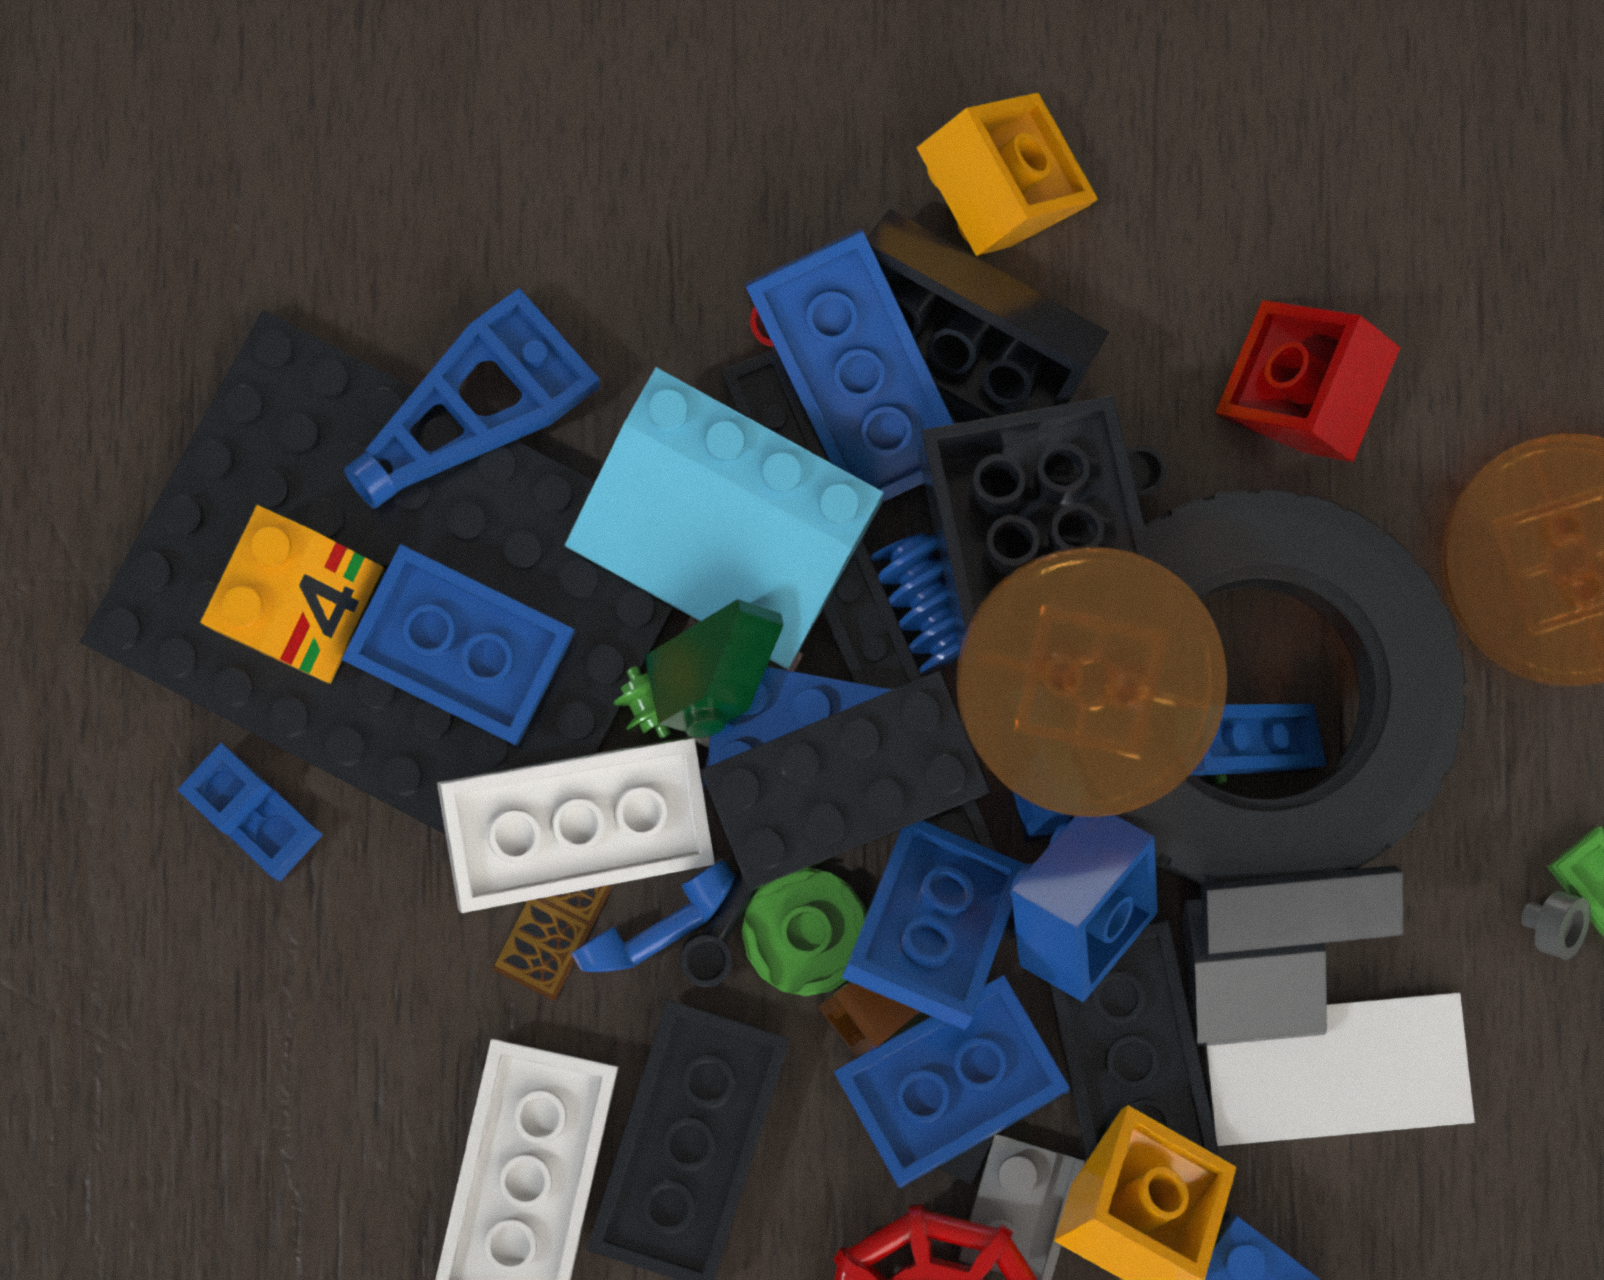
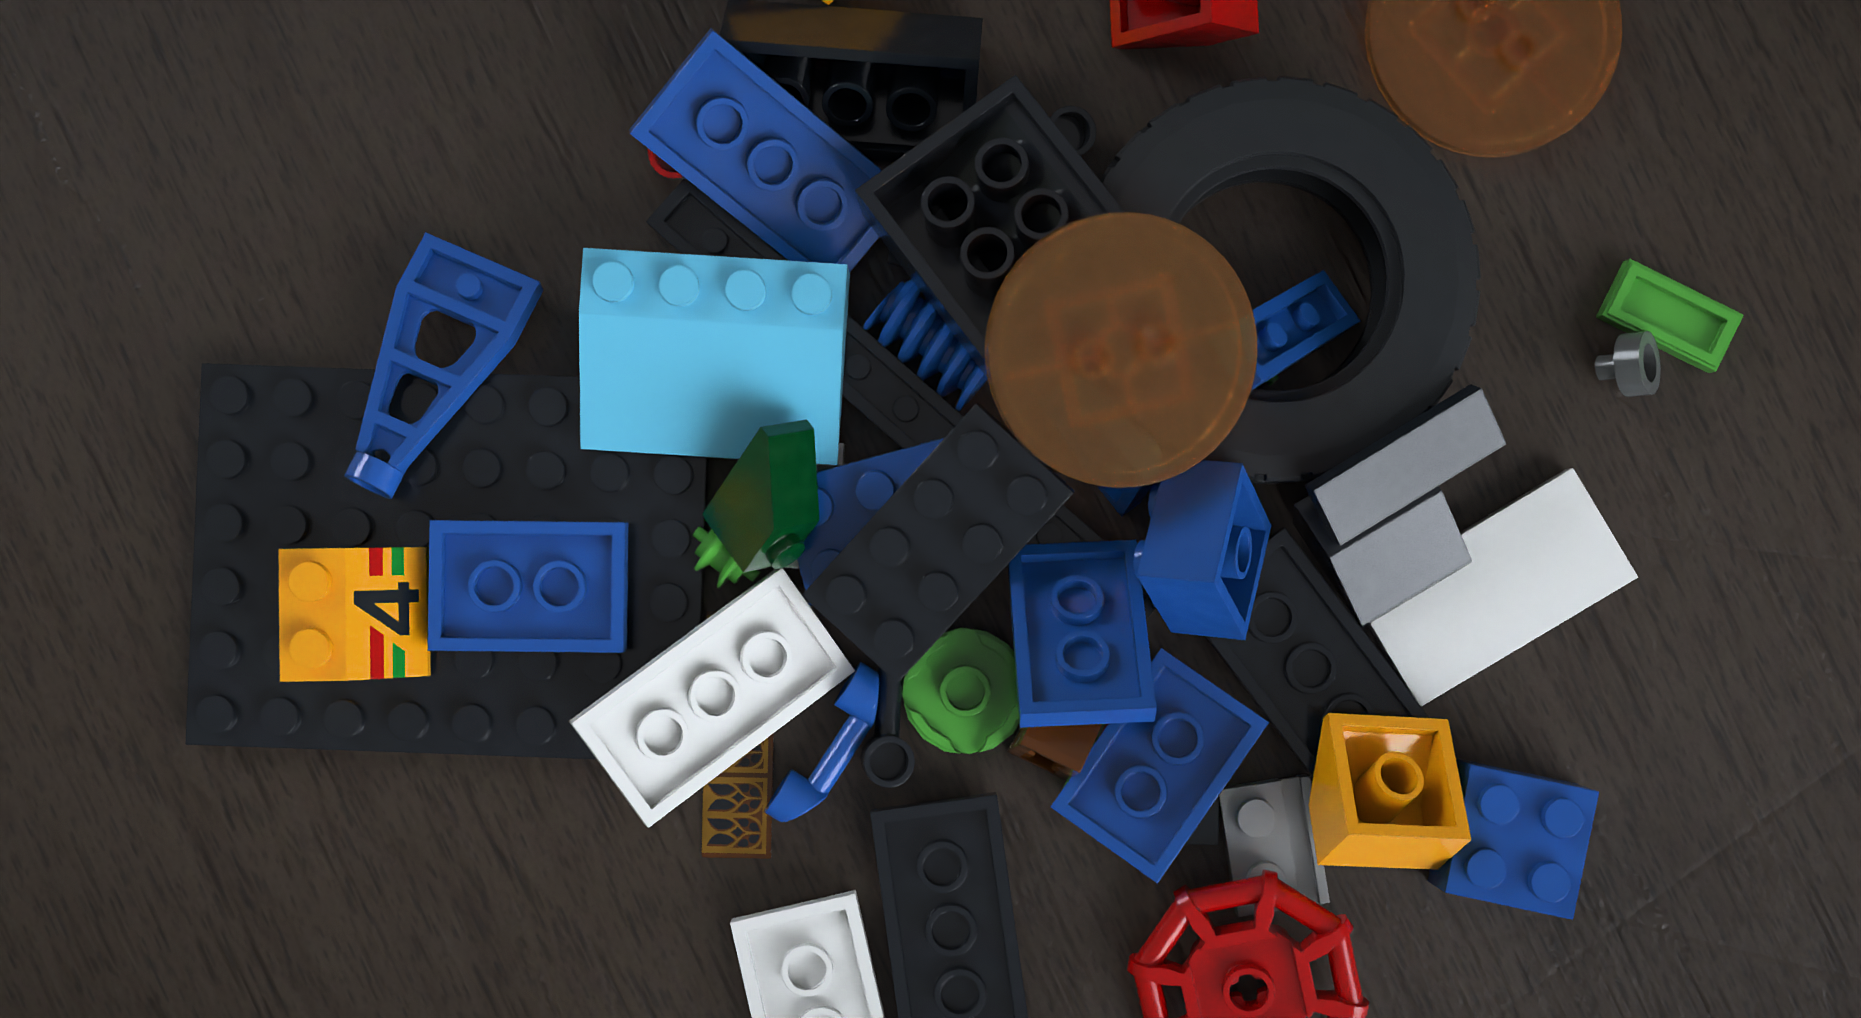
camera: 25 degrees left, 5 degrees up
(250, 812) = (415, 822): blue slope -> none

